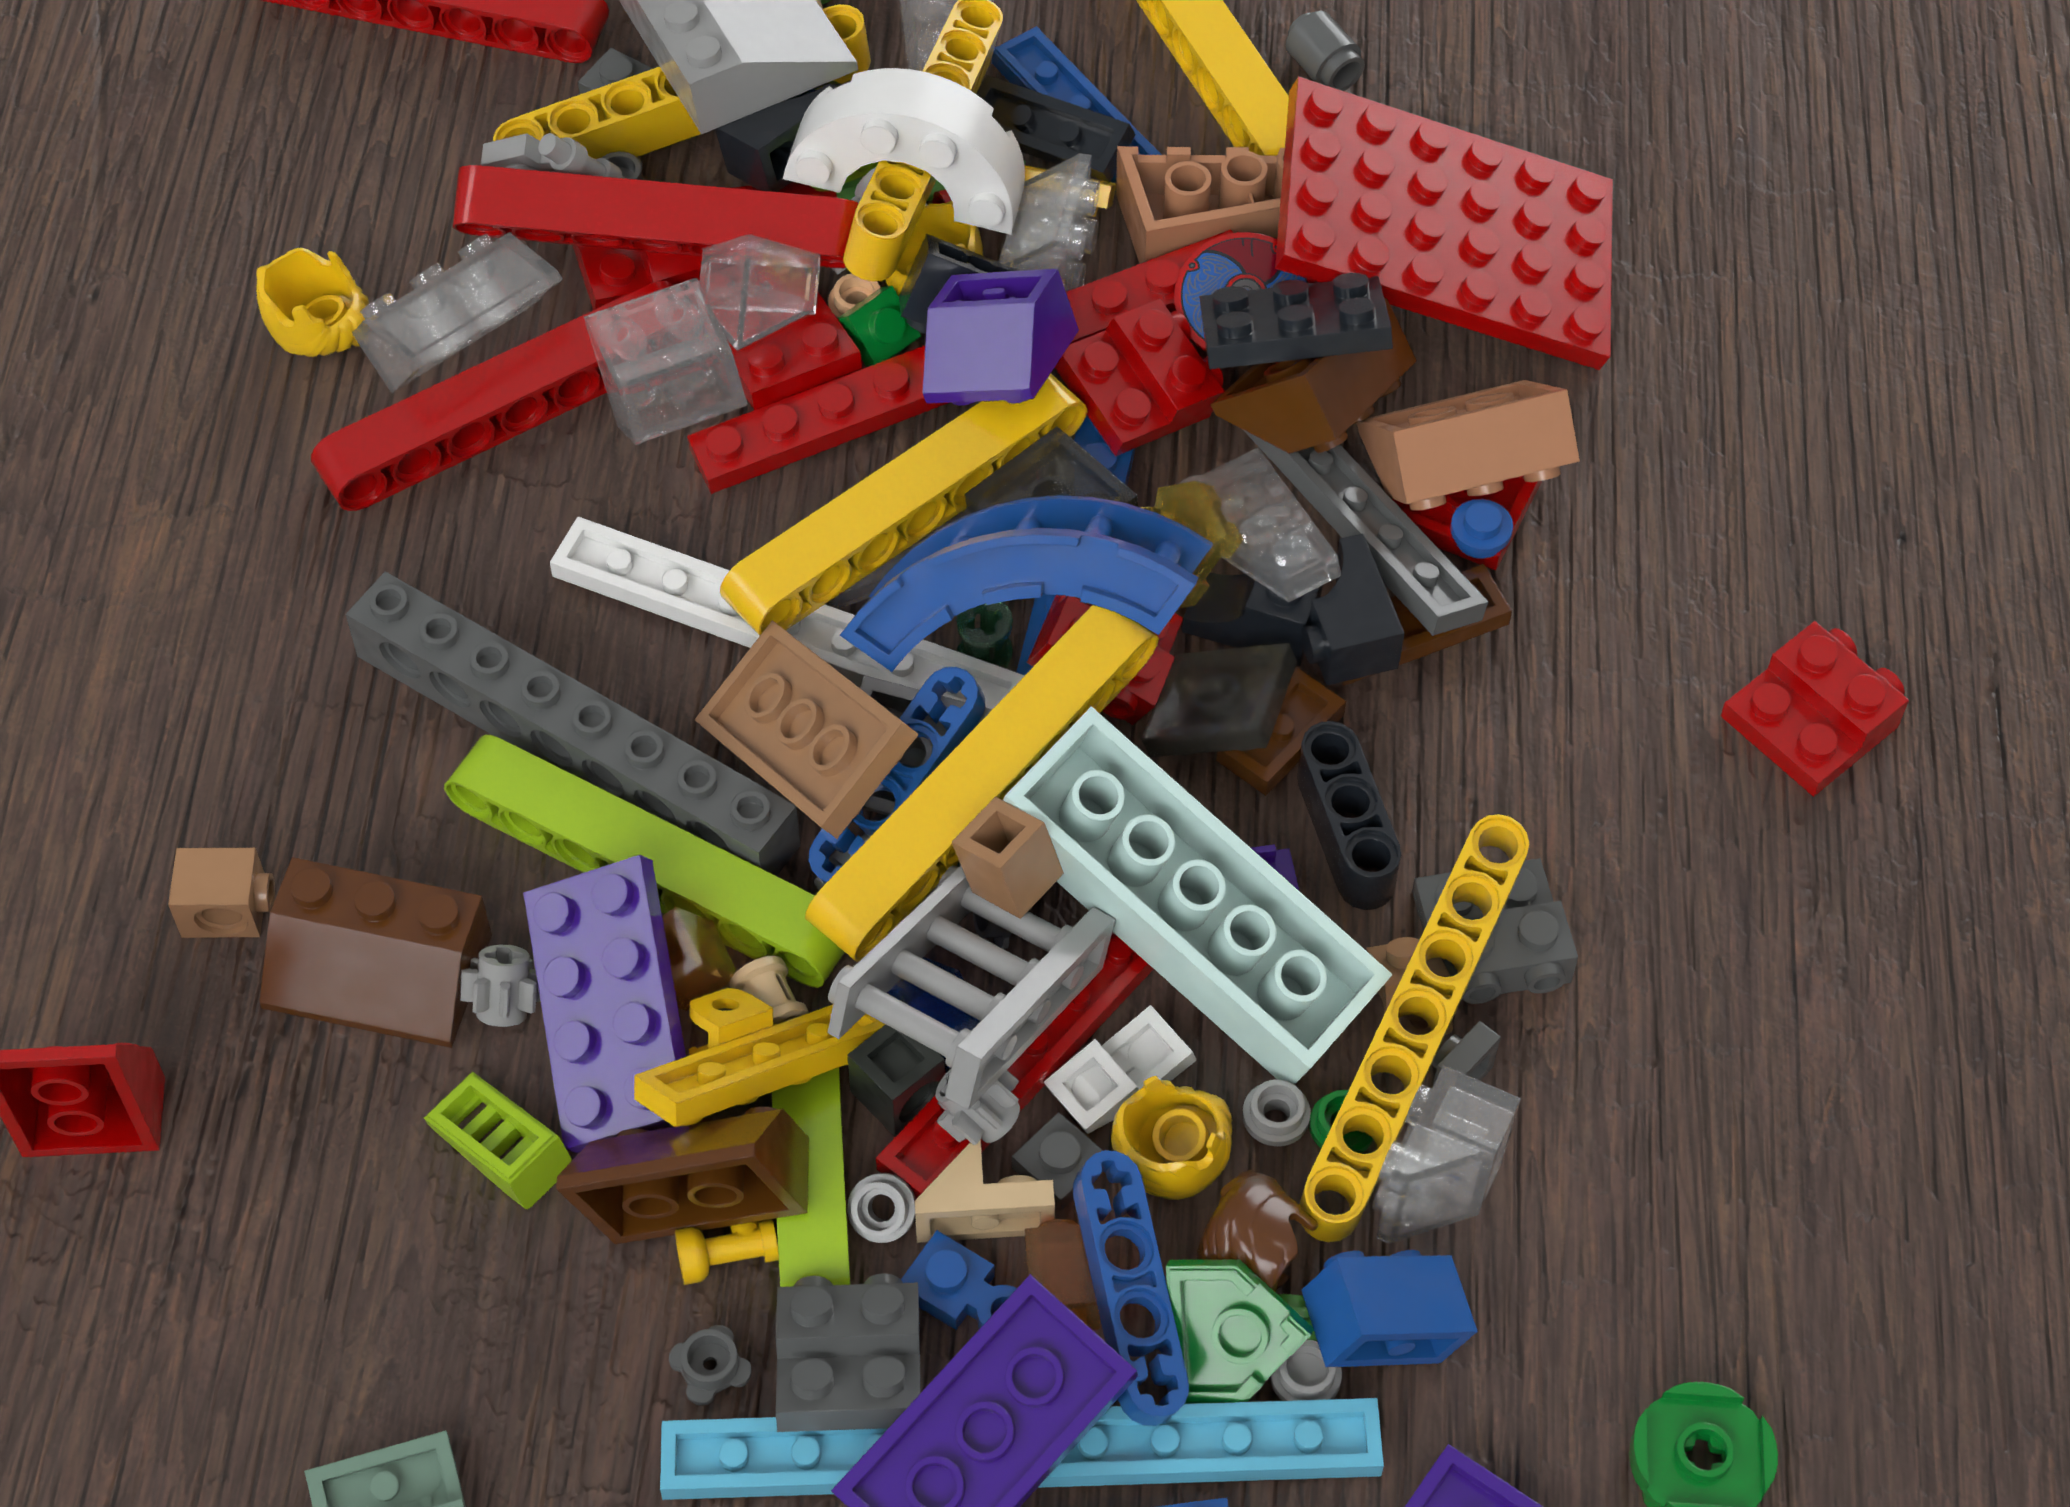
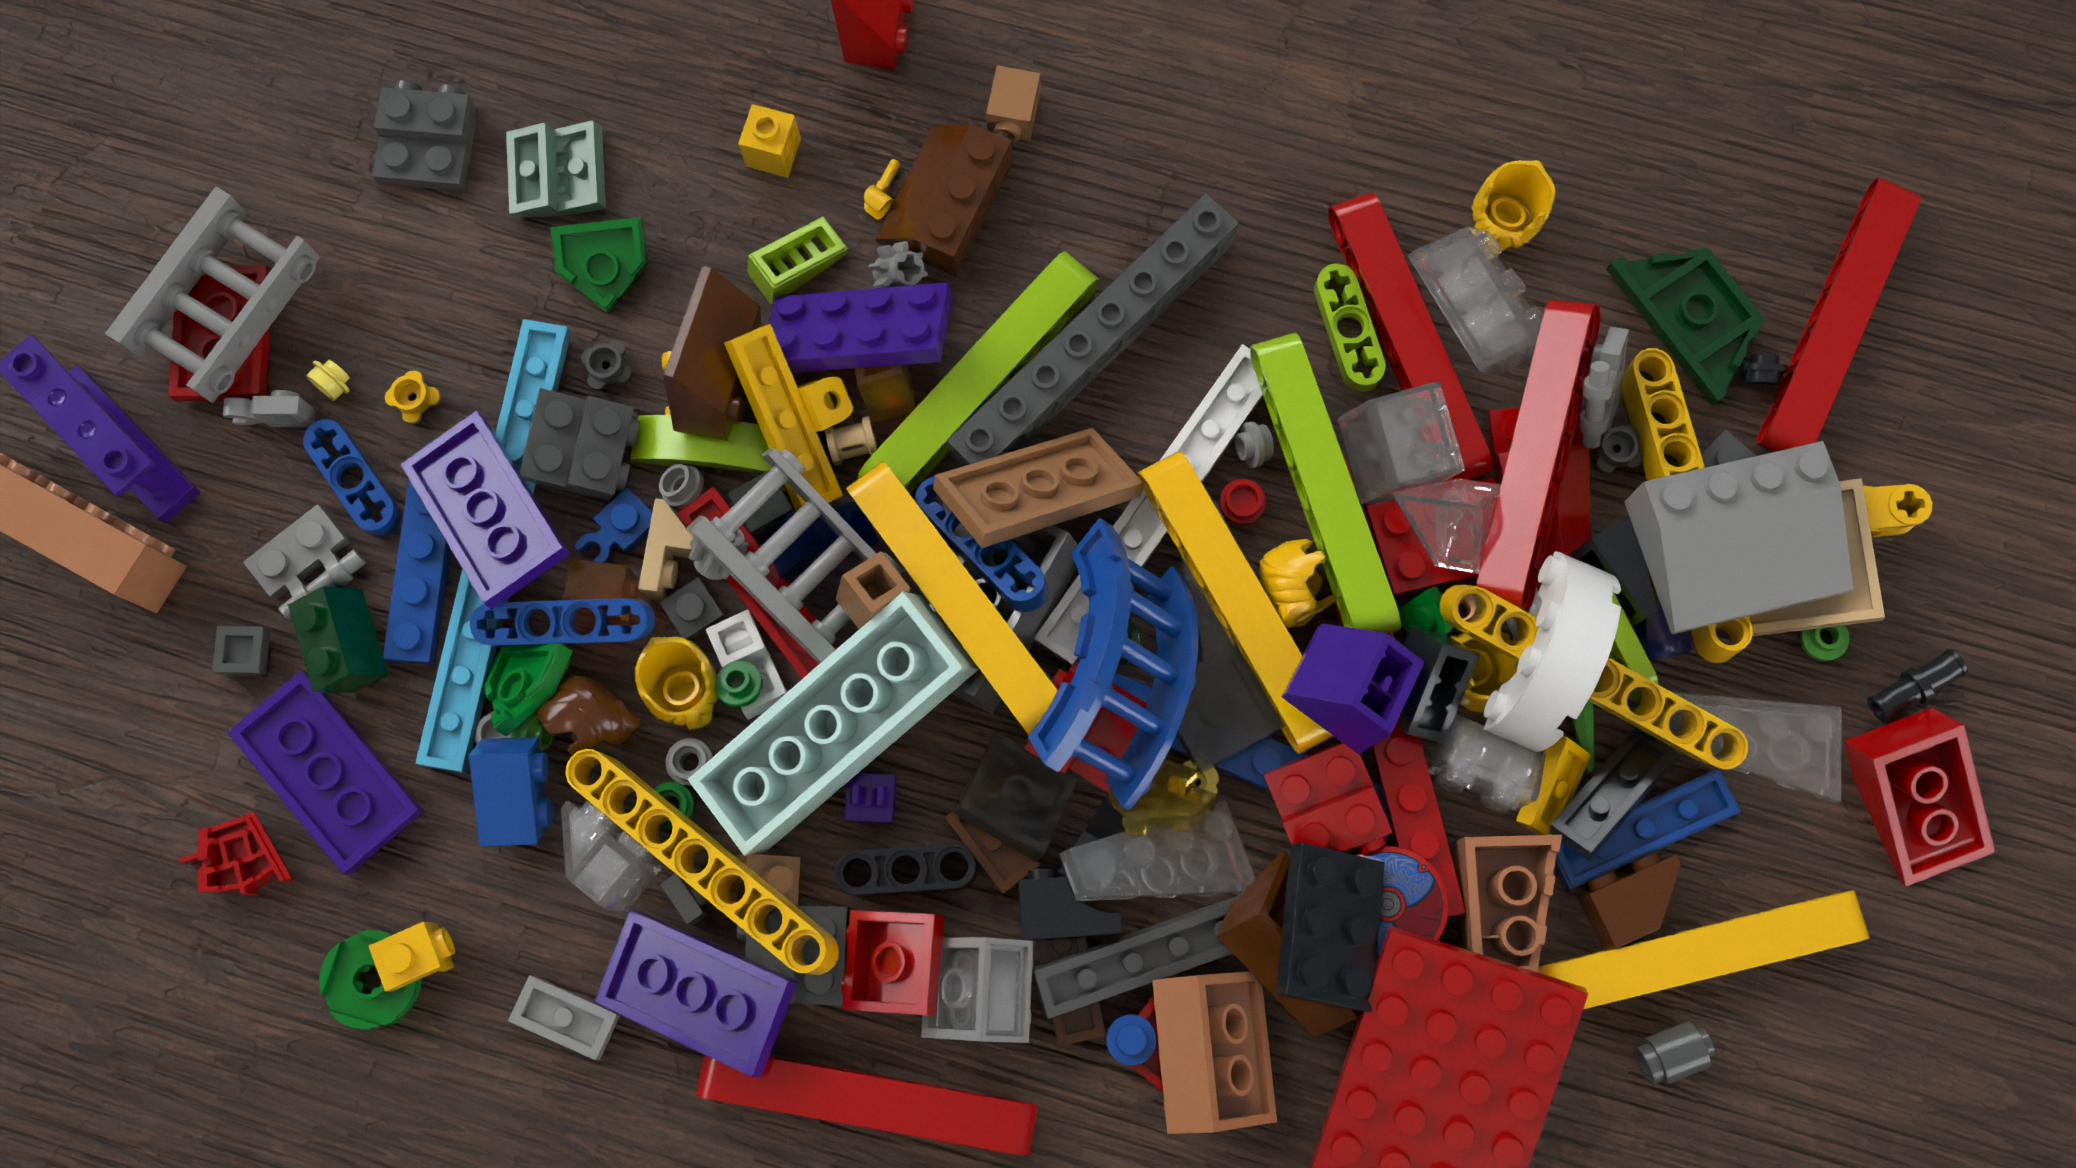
camera: 105 degrees right, 20 degrees up
(314, 1199) = (769, 140): none -> yellow brick
(389, 1052) = (876, 200): none -> yellow hand
(431, 125) = (1693, 312): none -> dark green wing
(491, 485) = (1370, 354): none -> lime beam
(497, 53) = (1764, 370): none -> black plate
(536, 1404) = (601, 257): none -> green plate
(687, 531) = (1254, 444): none -> light grey plate
(731, 431) = (1324, 485): none -> lime beam
(757, 530) = (1242, 501): none -> red plate
(861, 444) = (1293, 582): none -> yellow hair
(1167, 100) = (1632, 904): none -> reddish brown slope
(1171, 1068) = (742, 695): none -> green plate
(1464, 774) = (893, 962): none -> red plate
(1477, 686) = (983, 991): none -> piece
(1586, 1006) = (696, 993): none -> dark purple plate
(1648, 813) = (875, 1103): none -> red beam
(1654, 1391) = (412, 955): none -> yellow bracket
(1667, 1185) = (564, 1017): none -> light grey plate

